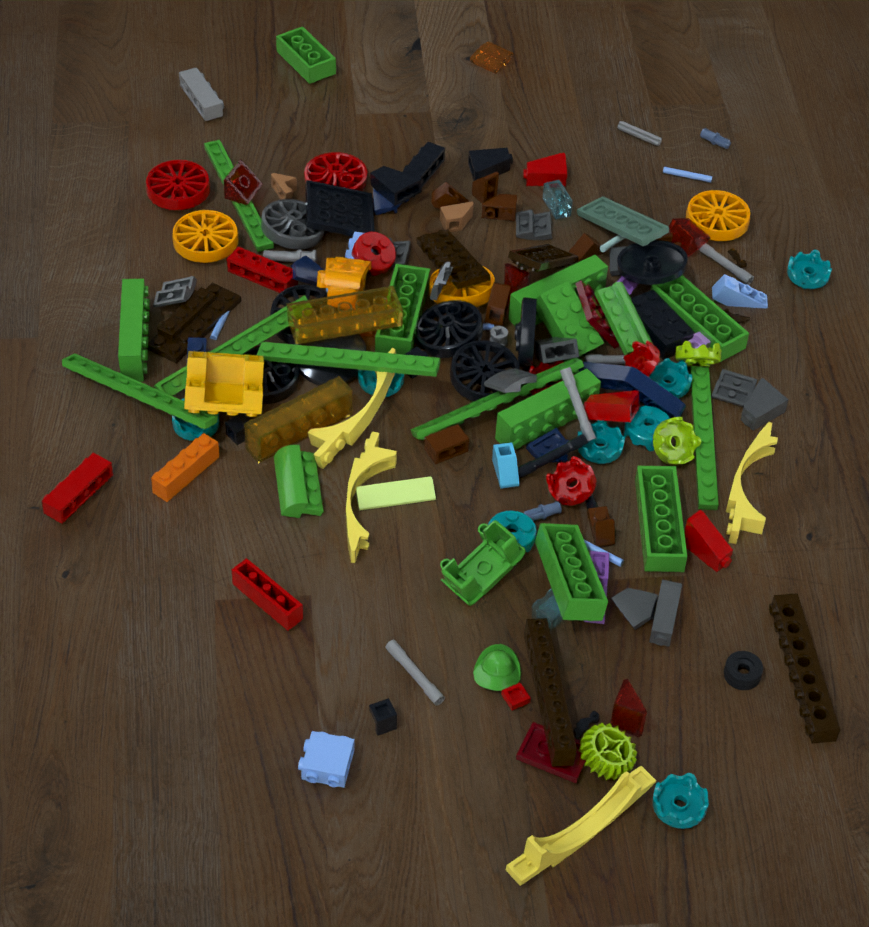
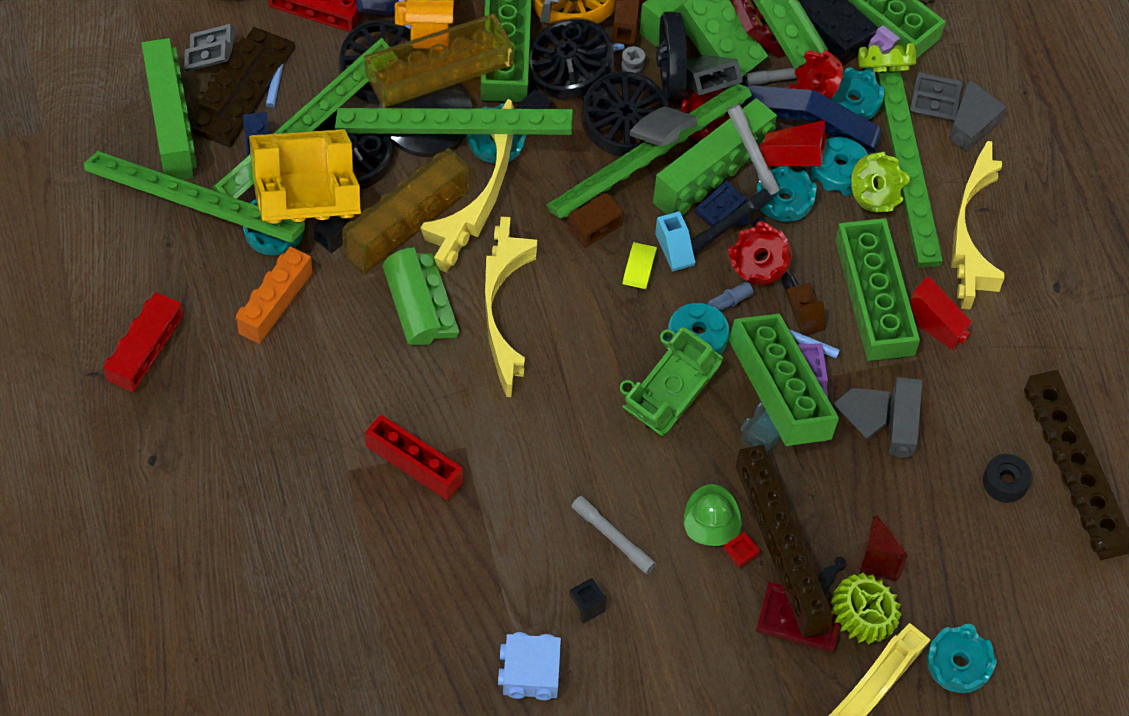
camera: 10 degrees left, 10 degrees up
(395, 493) = (544, 296): yellowish green slope -> none
(474, 480) = (639, 265): none -> neon yellow slope

